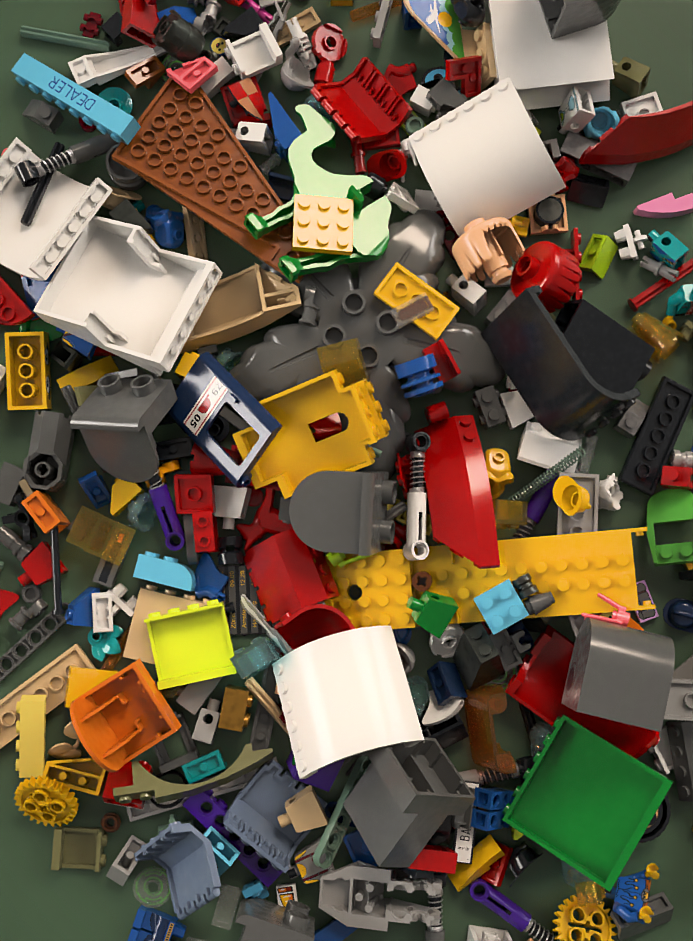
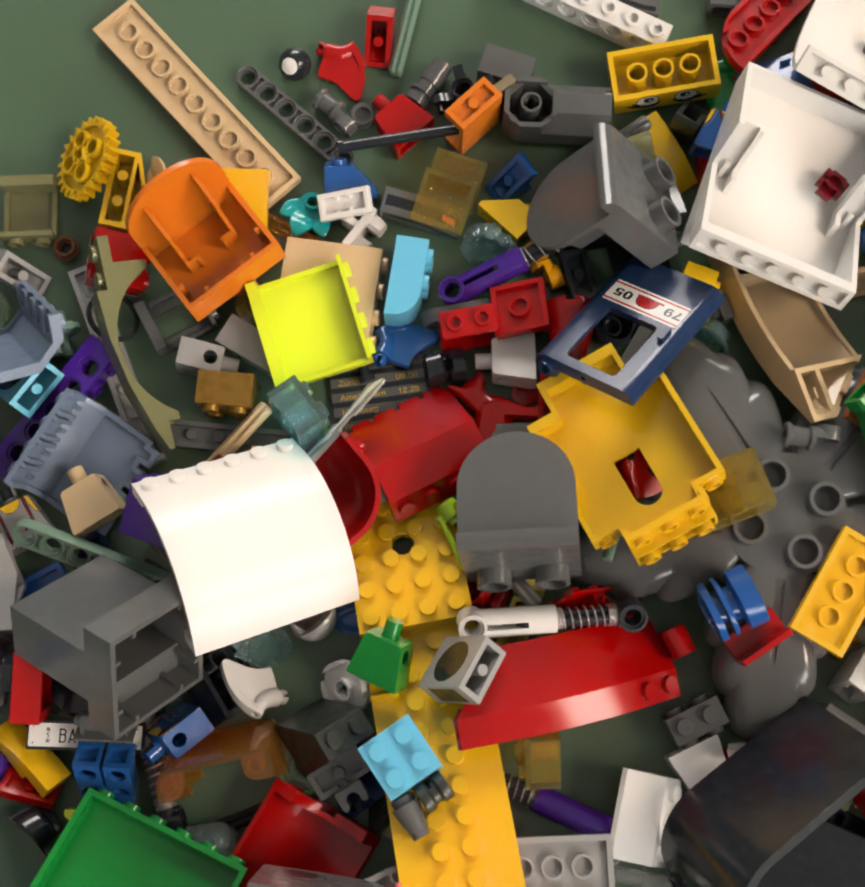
camera: 85 degrees right, 5 degrees down
(32, 735) = (175, 132): light yellow brick -> none
(131, 267) = (831, 185): none -> dark red piece
(204, 766) = (146, 360): teal panel -> none
(412, 310) = (828, 585): clear tile -> none
(422, 581) = (430, 642): reddish brown wheel -> none
(446, 682) = (284, 690): dark blue panel -> none
(447, 559) = (462, 669): none -> light grey brick
(468, 758) = (176, 731): none -> blue torso
(498, 470) = (600, 740): yellow head -> none
(552, 471) = (630, 843): sand green piece -> none
(570, 496) = (577, 853): yellow piece -> none

